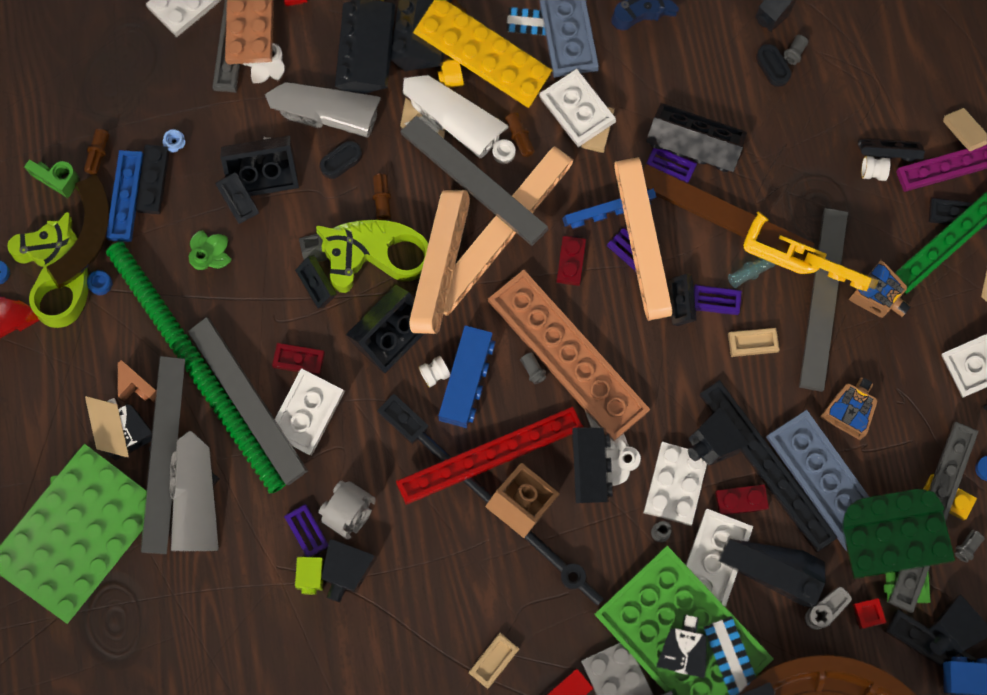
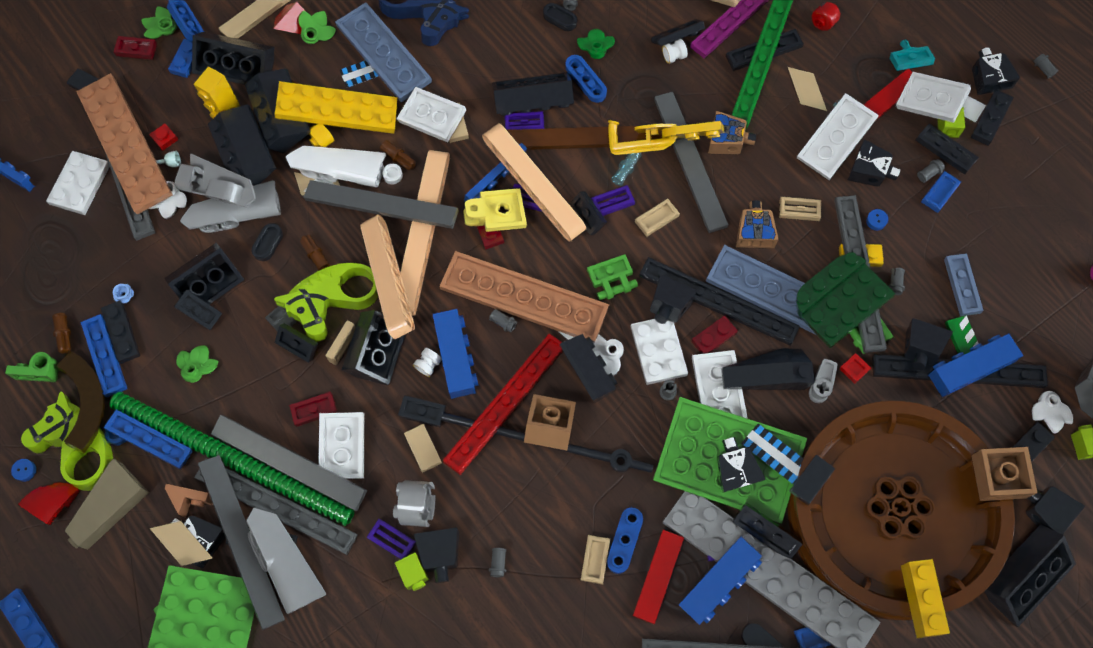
camera: 25 degrees left, 5 degrees down
(56, 349) = (105, 505): none -> dark tan slope
(126, 305) = (148, 439): none -> blue plate
(223, 451) = (290, 513): none -> dark grey tile
(289, 21) = (171, 159): none -> light aqua hinge
(319, 71) = (214, 182): none -> light grey panel
(359, 306) = (341, 343): none -> tan tile
(384, 456) = (423, 448): none -> tan tile
(397, 611) = (498, 563): none -> dark grey pin
(525, 667) = (622, 550): none -> blue plate
(577, 246) = (485, 210): none -> light yellow plate
(670, 374) = (611, 271): none -> bright green plate
(765, 142) = (582, 73): none -> blue plate
(795, 115) = (596, 43): none -> green plate
(906, 419) = (800, 212): none -> tan tile

